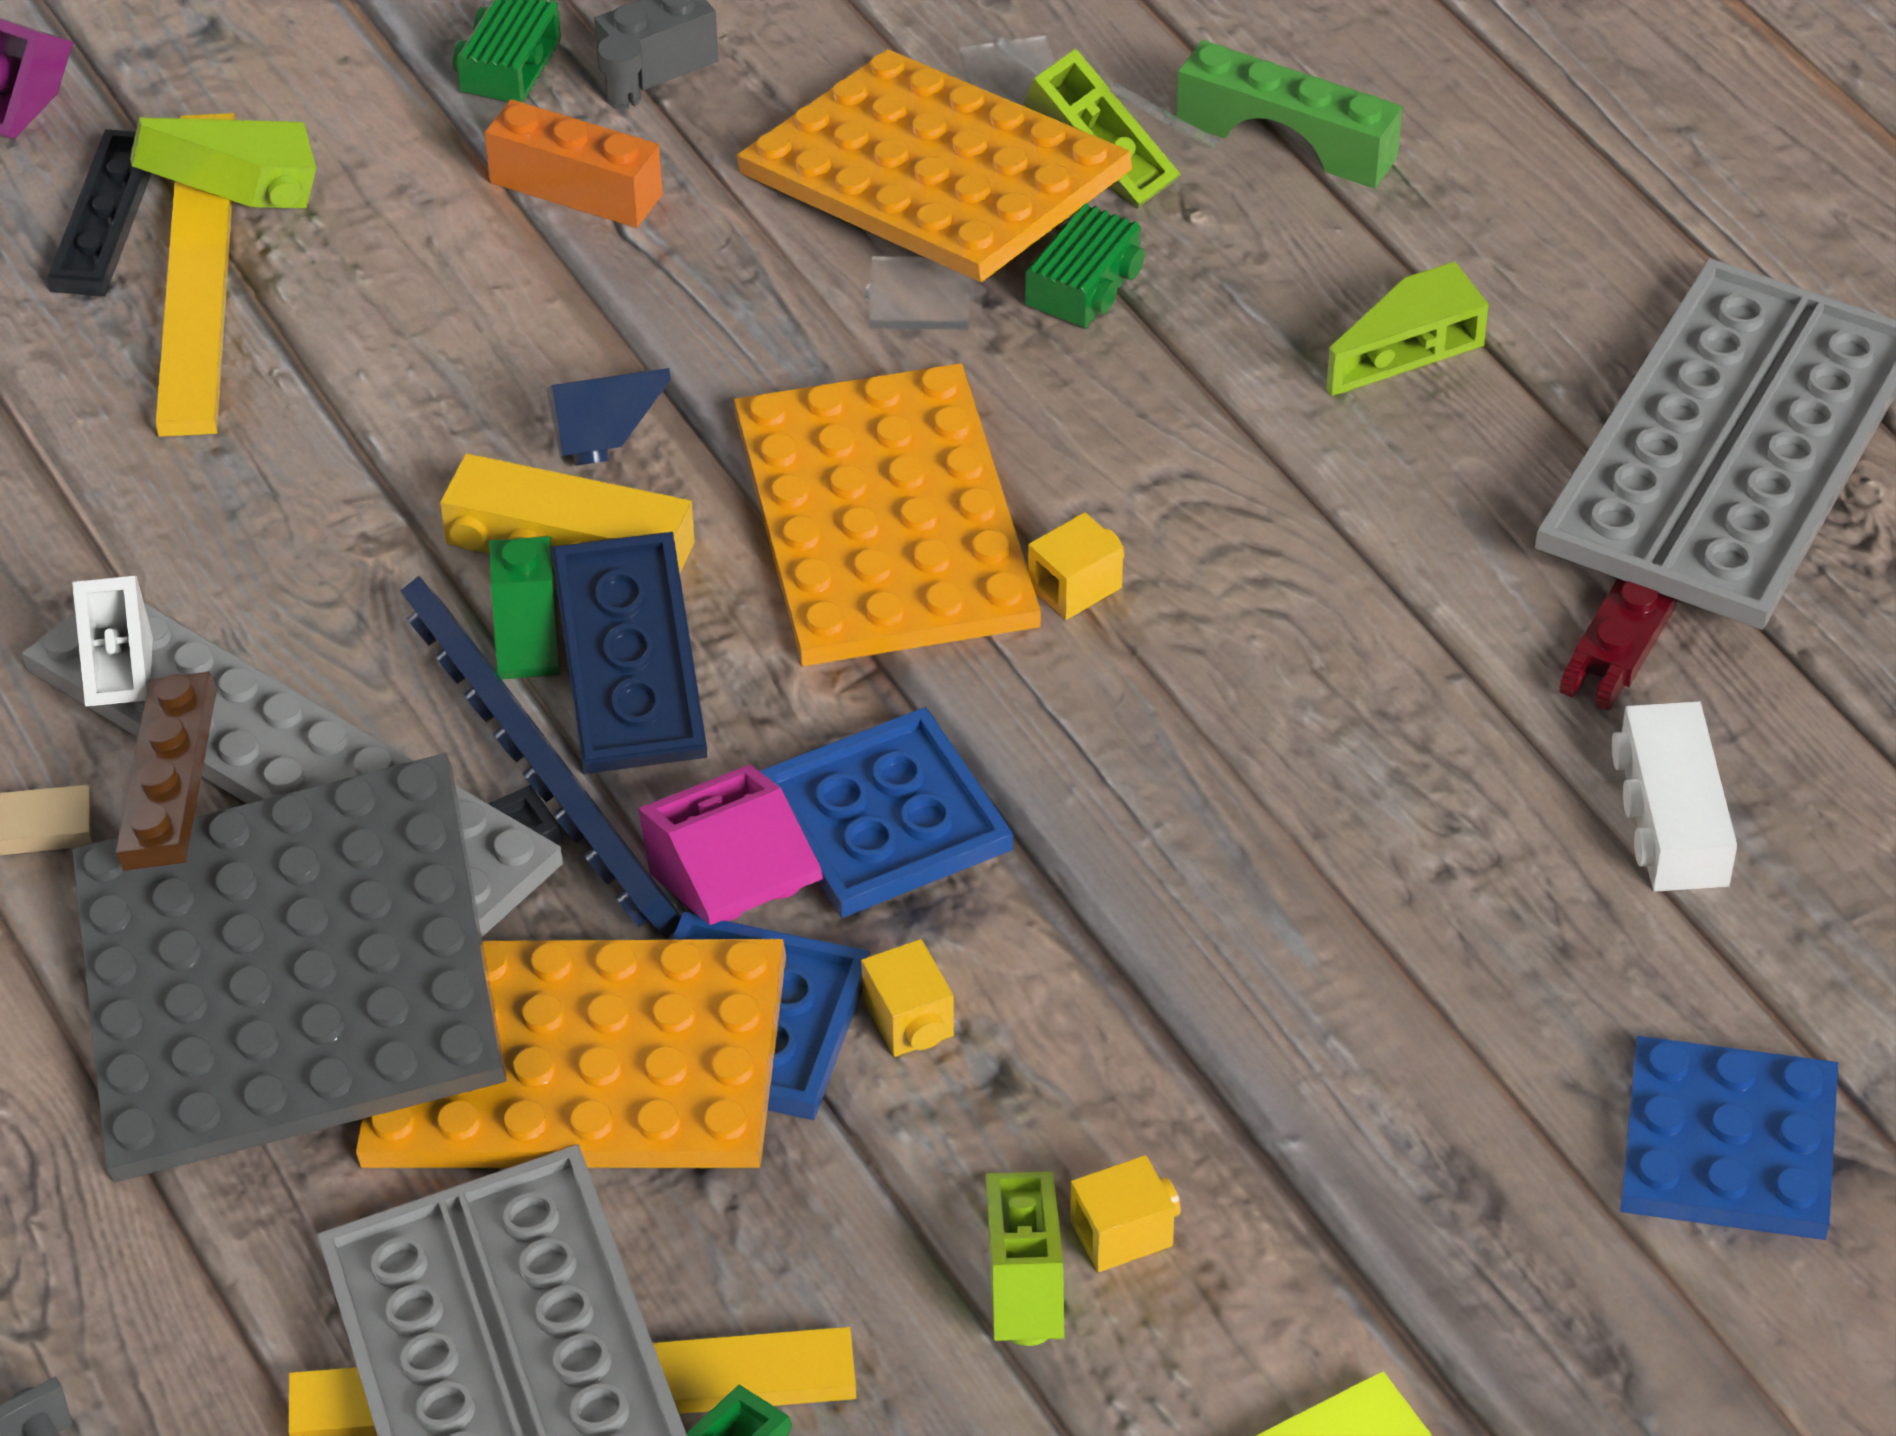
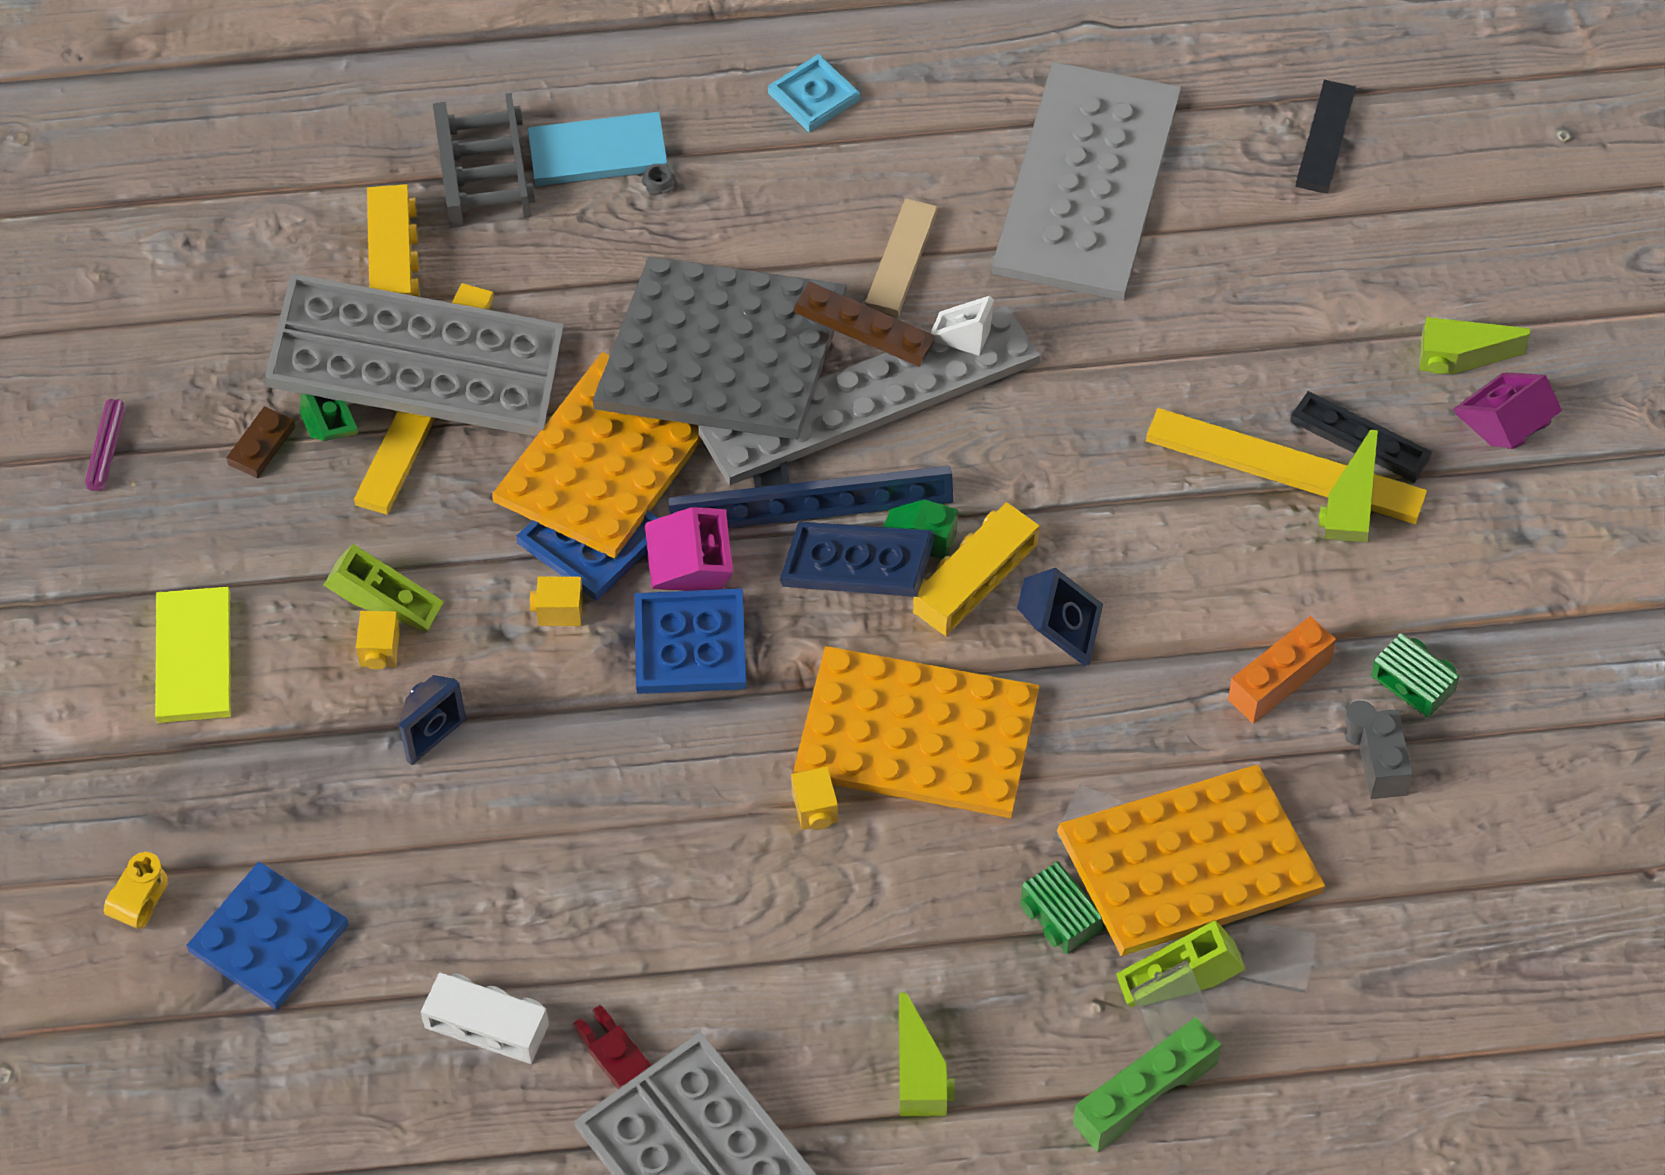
camera: 115 degrees right, 10 degrees up
(1235, 1058) = (430, 715): none -> dark blue slope
(1799, 1333) = (137, 891): none -> yellow piece

